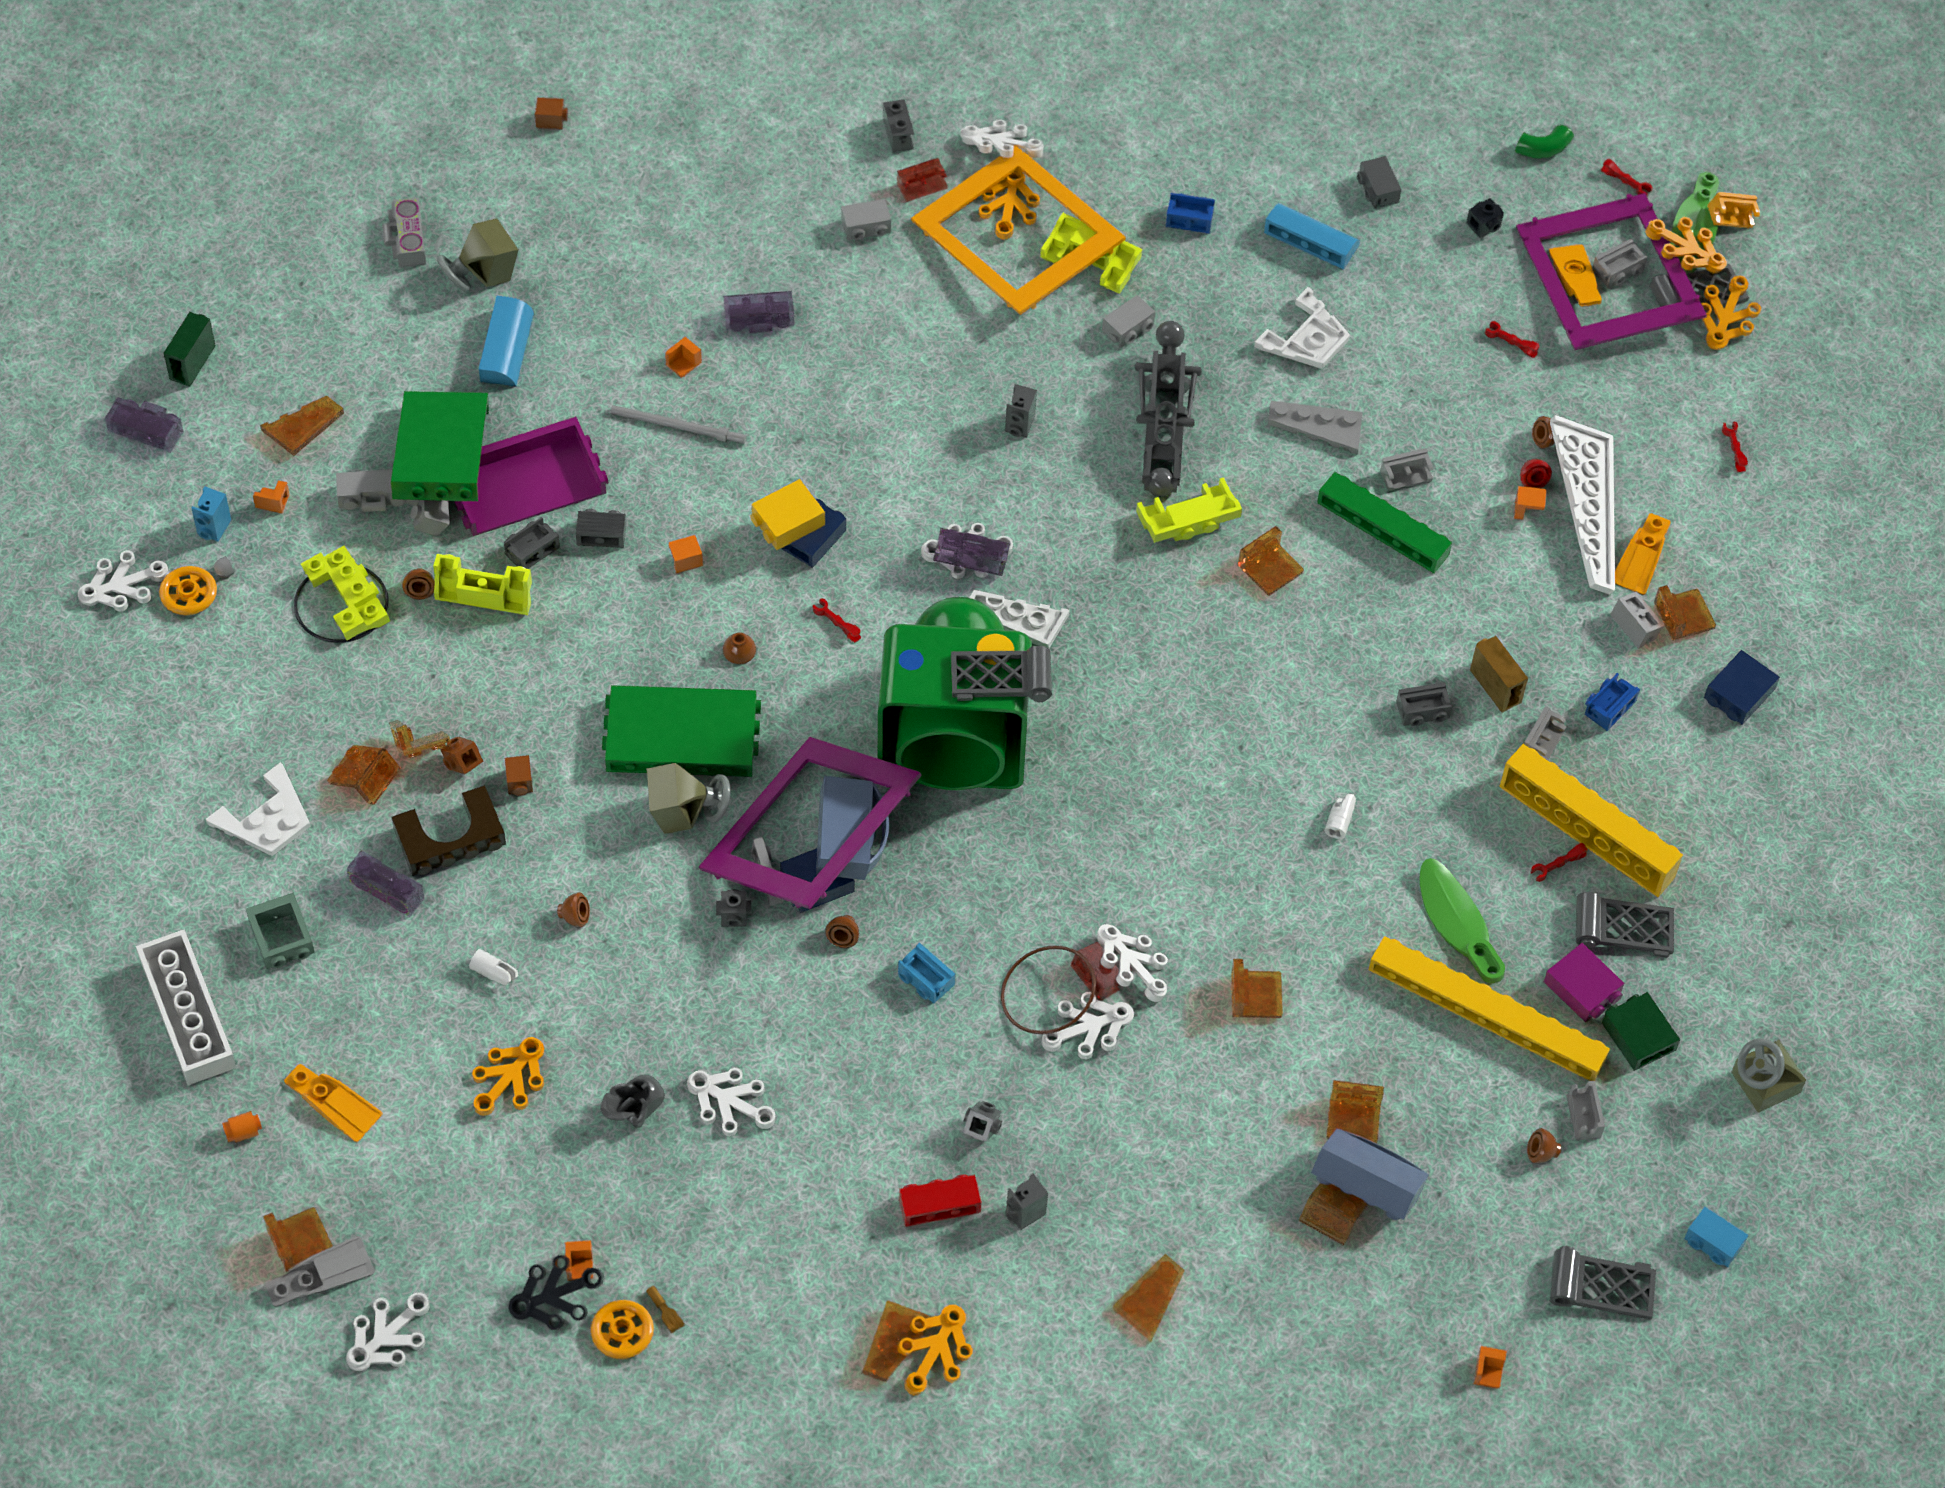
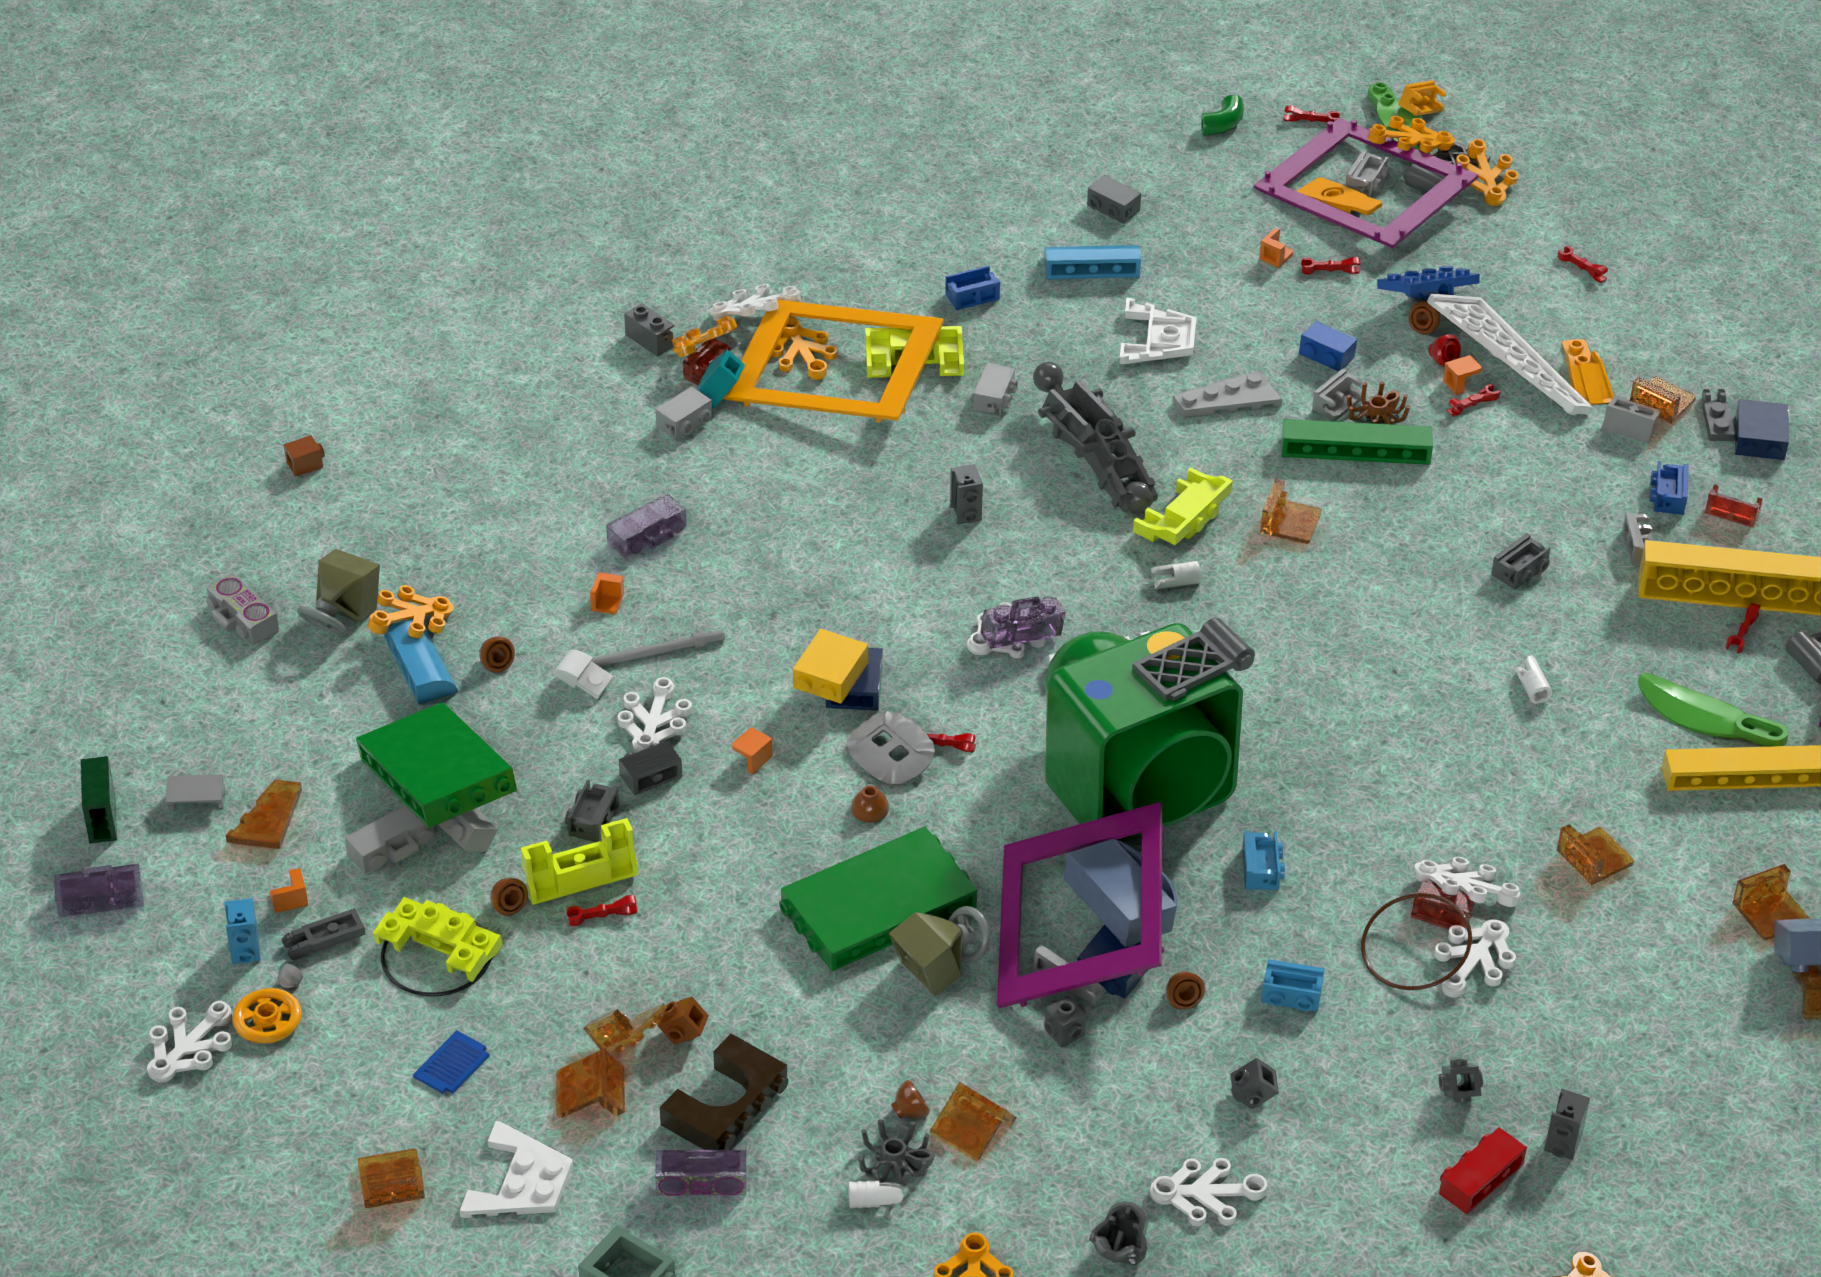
camera: 30 degrees left, 15 degrees down
(178, 767) = (391, 1178): none -> clear orange bracket
(265, 376) = (195, 789): none -> light grey hinge
(272, 544) = (323, 934): none -> dark grey hinge
(287, 698) = (452, 1063): none -> blue window
(497, 636) = (623, 906): none -> red piece
(518, 775) = (752, 1012): dark orange brick -> none
(523, 300) = (437, 607): none -> light orange plant
(531, 944) = (895, 1153): none -> dark grey animal
(533, 476) = (551, 750): magenta panel -> none
(561, 370) = (497, 654): none -> dark orange brick
(606, 948) = (970, 1121): none -> clear orange bracket
(612, 421) = (580, 671): none -> white brick
(639, 487) = (662, 690): none -> white plant
(773, 609) = (876, 758): none -> light grey piece
(827, 1037) = (1254, 1083): none -> dark grey brick
(914, 202) = (720, 377): none -> teal slope
(931, 154) = (686, 346): none -> light orange plant
(990, 856) = (1262, 861): none -> dark azure hinge
(1139, 571) = (1181, 575): none -> white hinge
(1150, 1296) = (1741, 1152): clear orange wing -> none
(1431, 498) = (1379, 406): none -> dark orange animal
(1438, 418) = (1327, 346): none -> blue brick
(1475, 300) = (1273, 251): none -> orange panel
(1485, 217) = (1227, 186): black brick -> none
(1498, 673) = (1564, 505): pearl gold brick -> none
(1500, 531) = (1484, 395): none -> red piece
(1571, 401) = (1428, 282): none -> blue plate
(1650, 748) = (1733, 508): none -> clear red hinge
(1718, 654) = (1718, 417): none -> dark grey hinge

